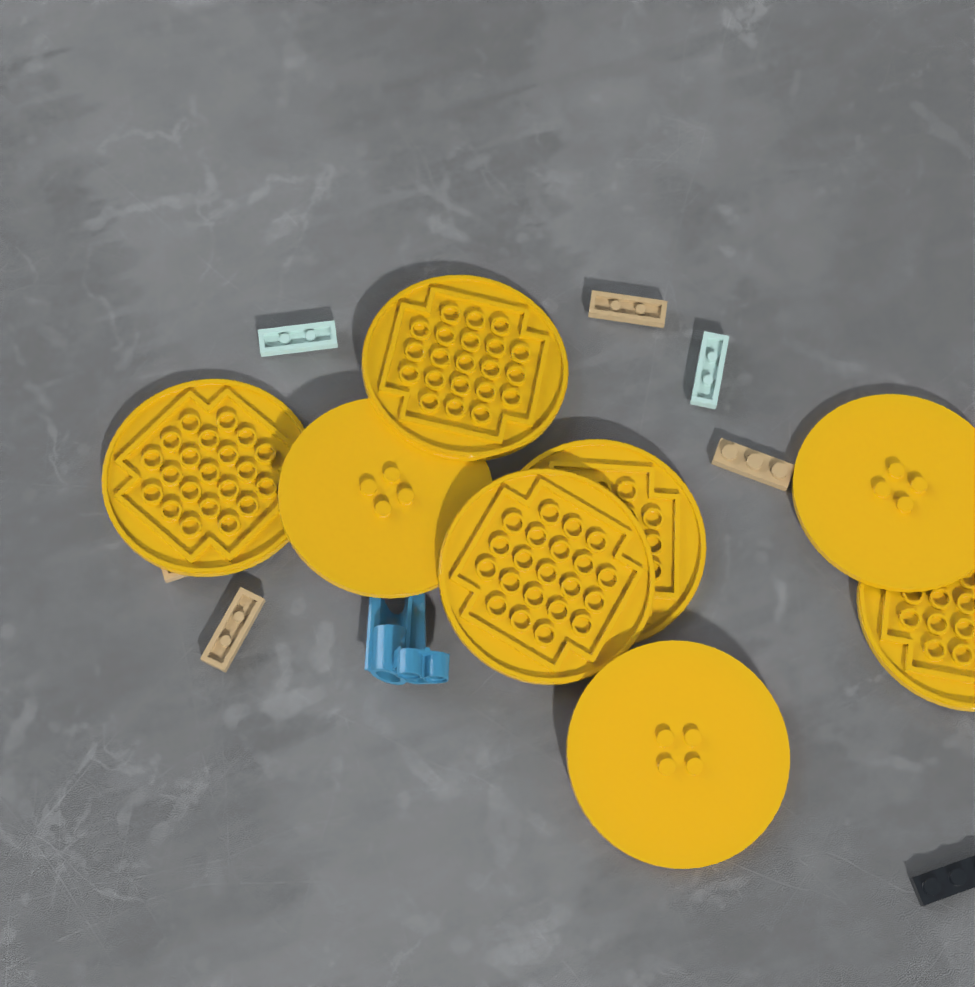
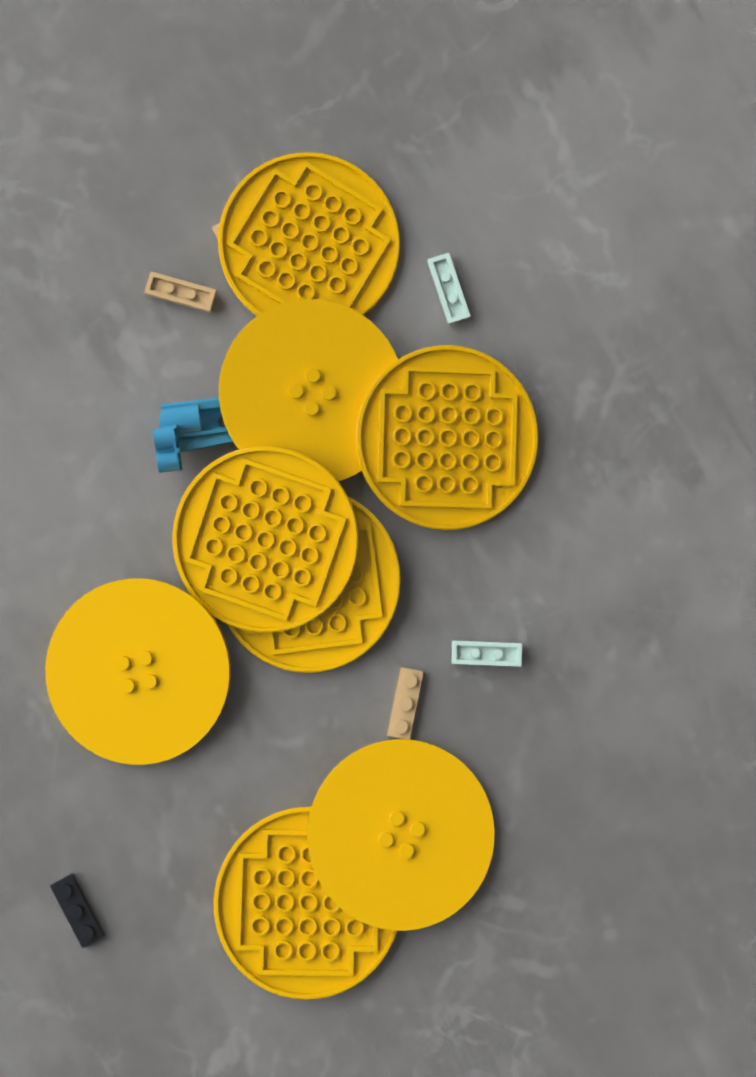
camera: 80 degrees right, 15 degrees up
(627, 309) = (532, 572): tan plate -> none

